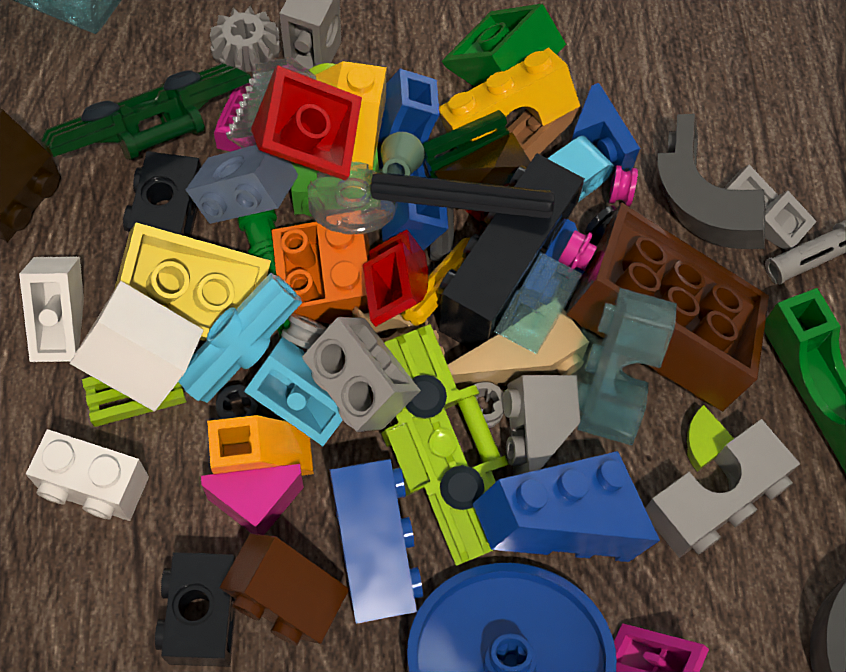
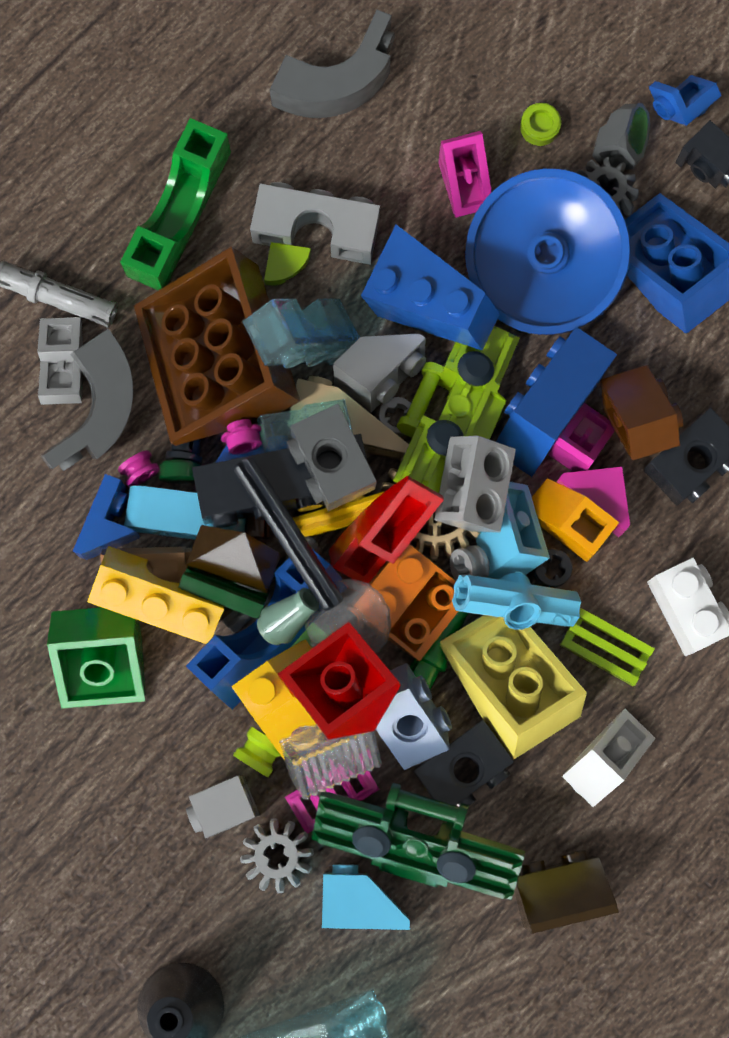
camera: 130 degrees left, 15 degrees up
(138, 347) = (586, 653): white slope -> none
(151, 59) = (358, 902): none -> medium azure slope
(314, 525) = (582, 439): none -> dark pink slope
(504, 289) = (331, 432): none -> dark grey brick
(591, 206) = (177, 471): none -> dark green tile

